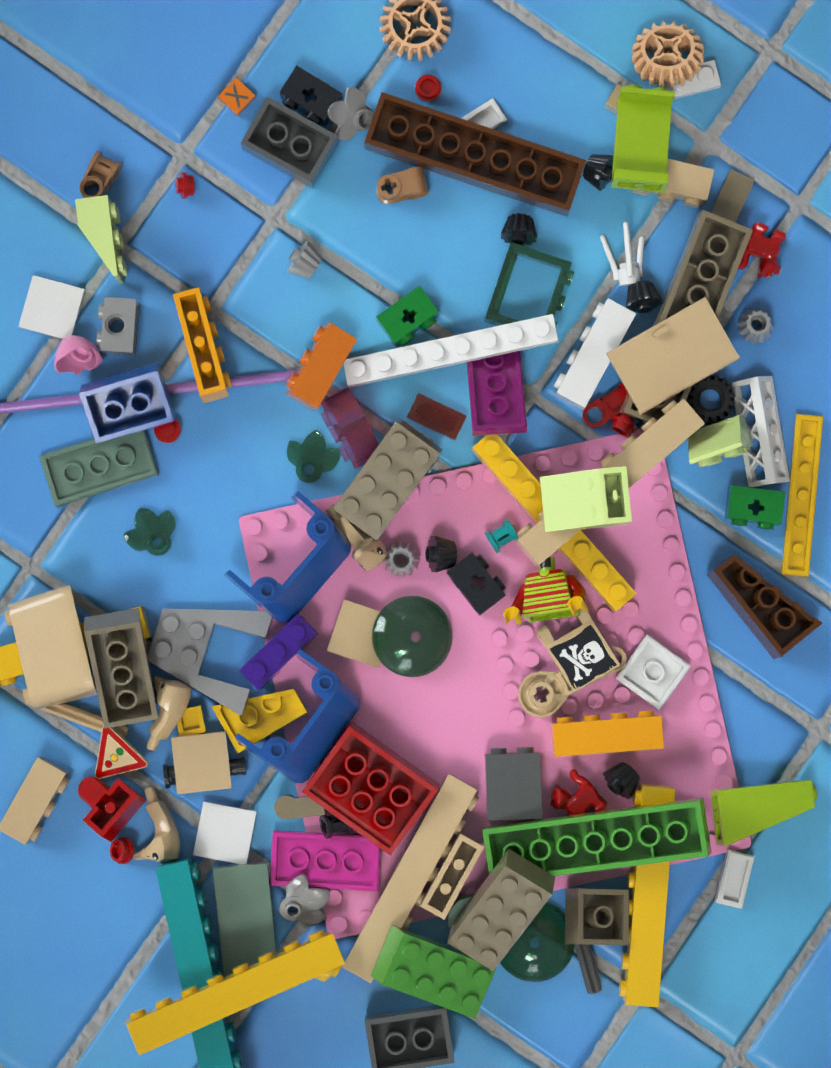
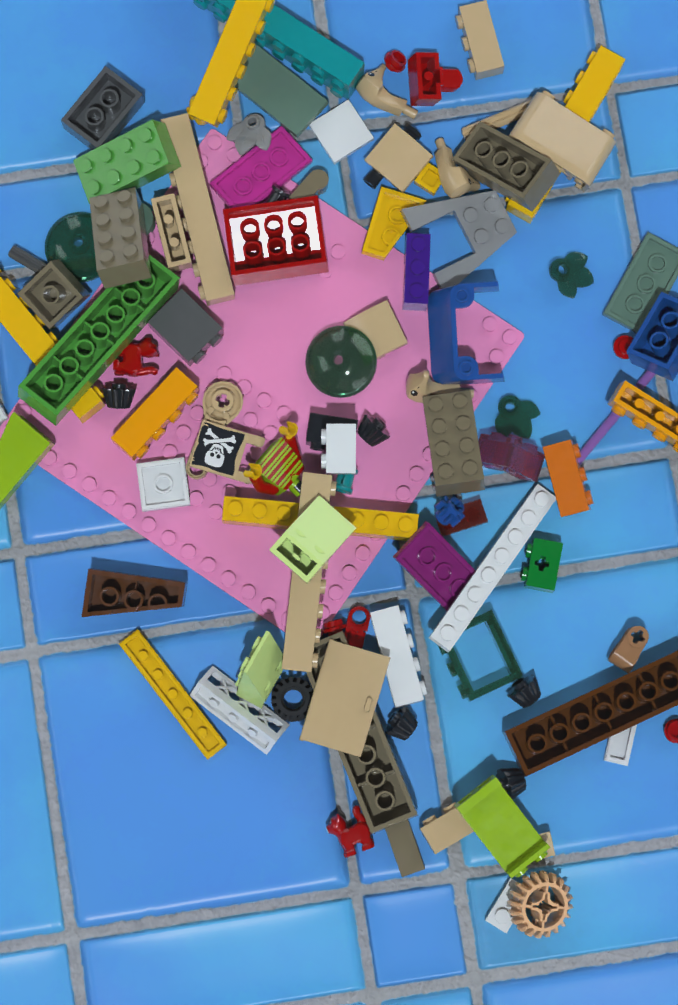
camera: 140 degrees right, 5 degrees down
(116, 755) = (455, 115): piece -> none
(304, 260) = (644, 537): light grey piece -> none
(305, 754) = (340, 242): blue windscreen -> none
(411, 559) = (395, 413): light grey piece -> none
(443, 427) = (449, 511): none -> blue gear
(482, 563) = (340, 448): none -> white brick
(630, 271) = (426, 732): white plant -> none
(741, 497) = (192, 668): green brick -> none
(765, 325) = (313, 787): light grey piece -> none

